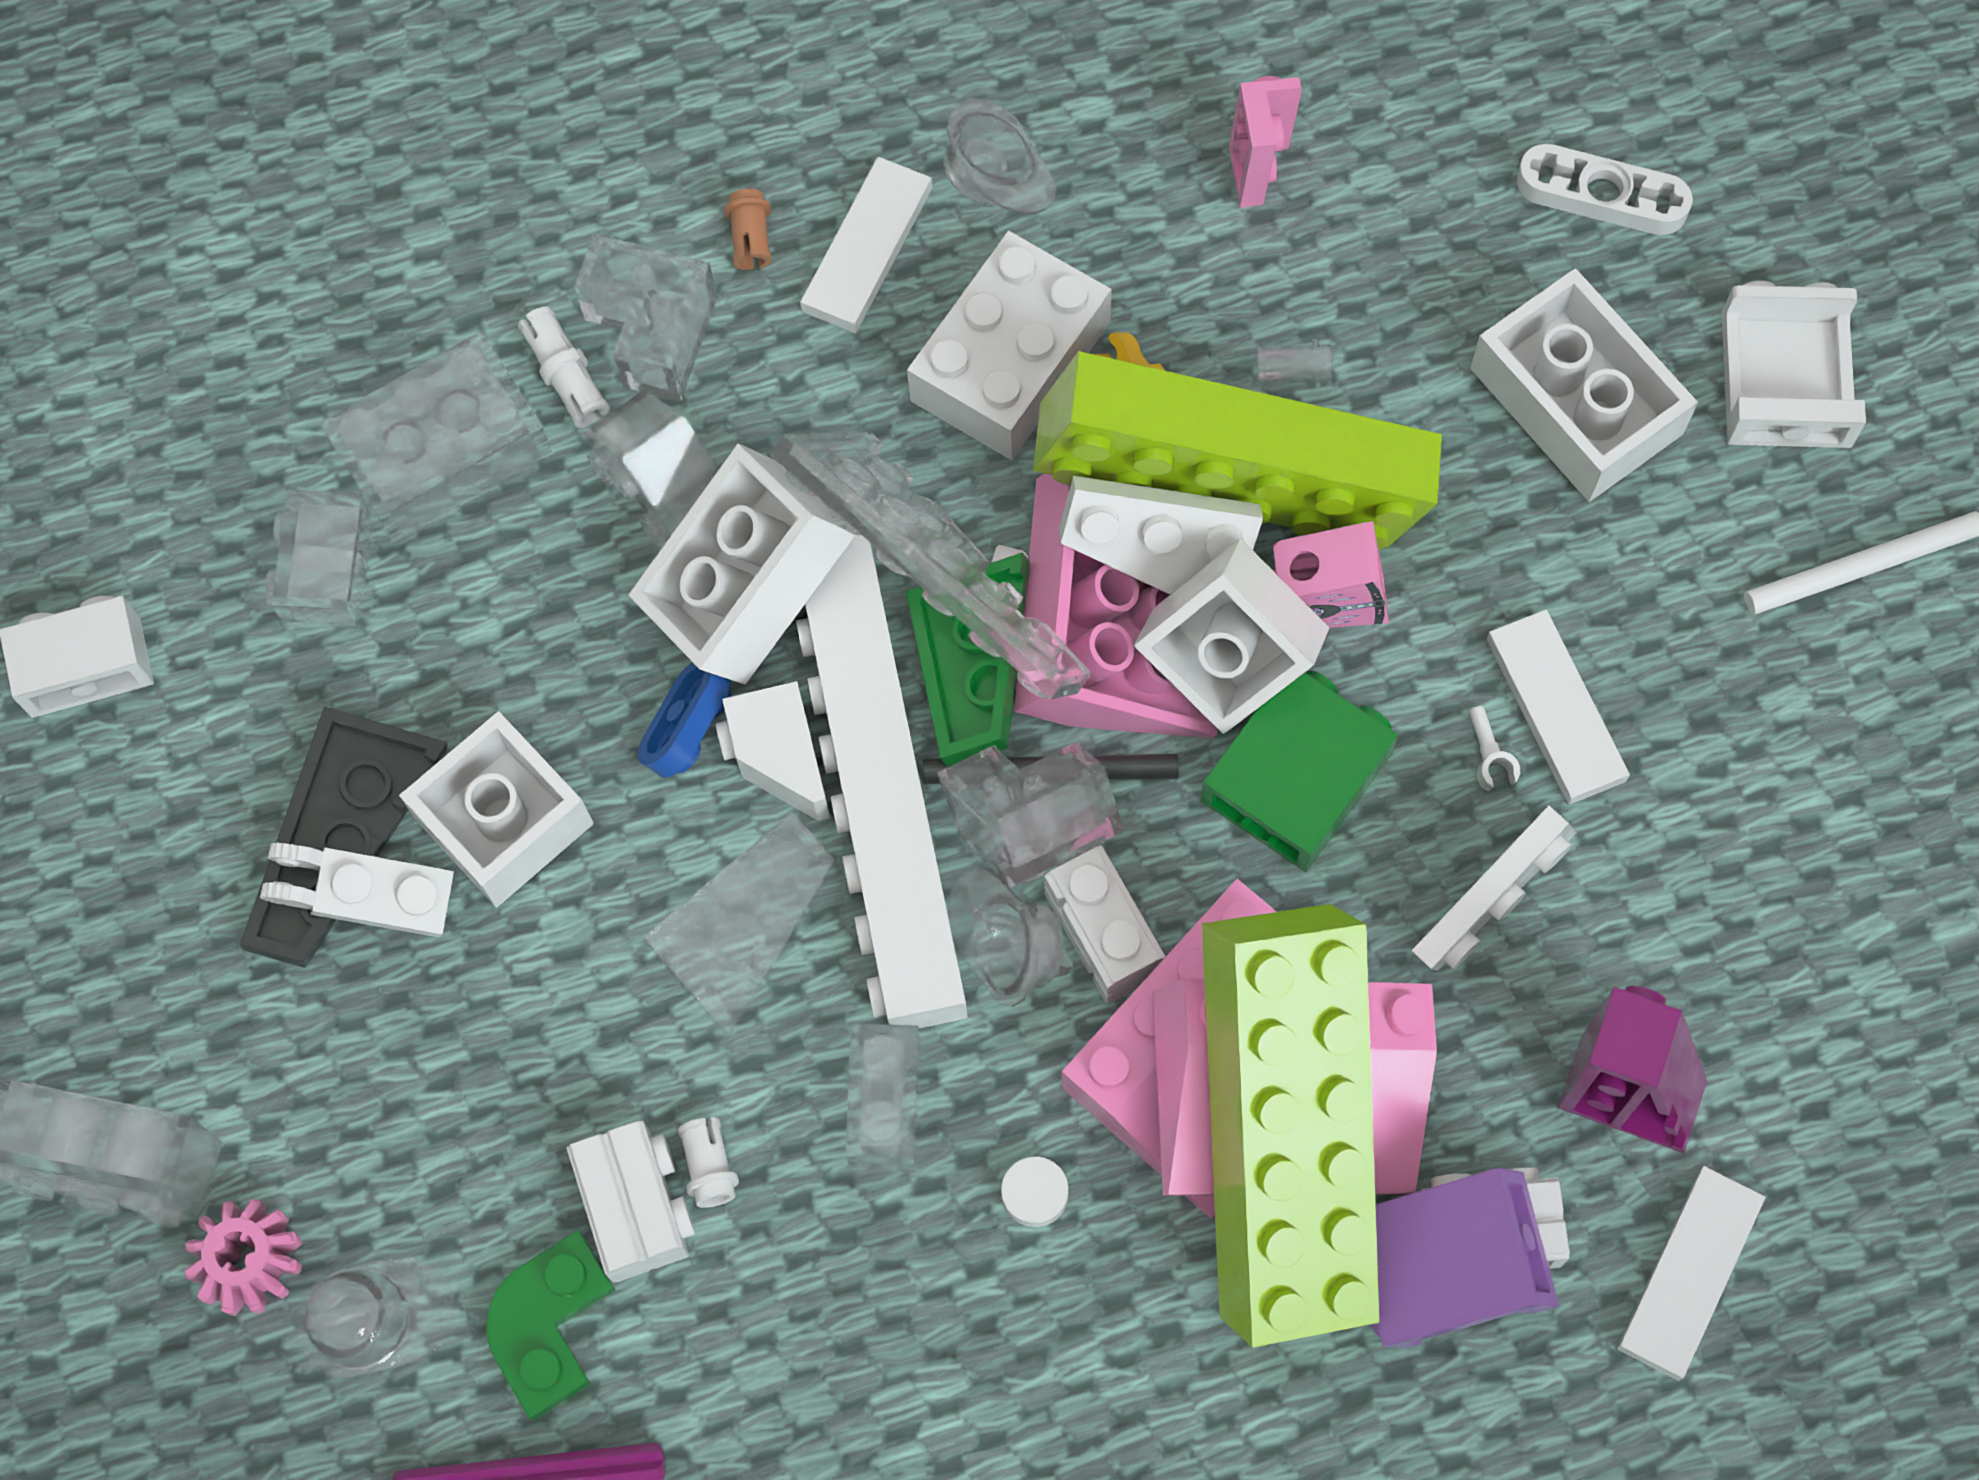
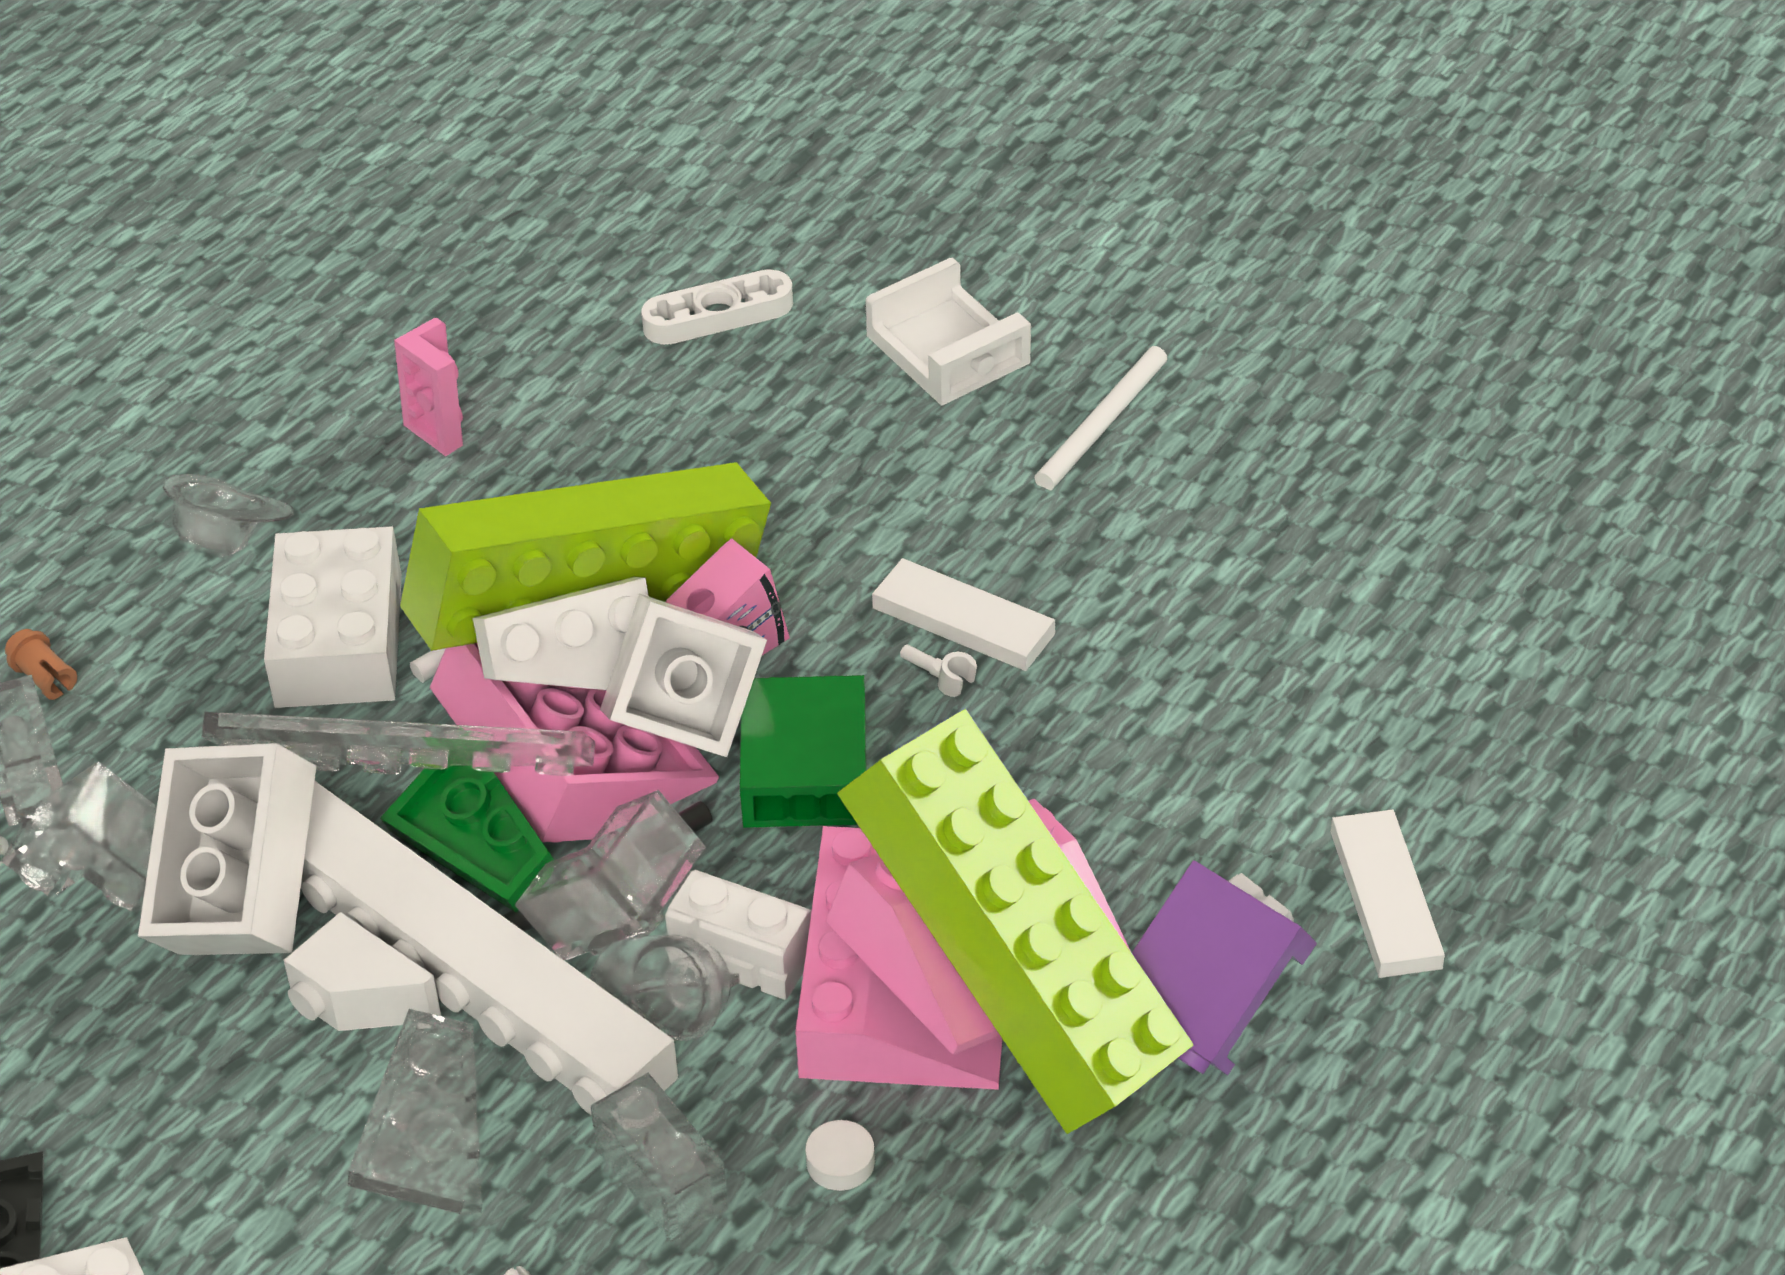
camera: 40 degrees left, 25 degrees down
(497, 809) = (135, 1158): white brick -> none
(682, 720) = (255, 1007): blue plate -> none
(866, 245) = (152, 627): white tile -> none
(1496, 891) = (1027, 720): white wing -> none
(1582, 384) = (808, 409): white brick -> none
(1637, 1069) = (1226, 766): magenta wedge -> none

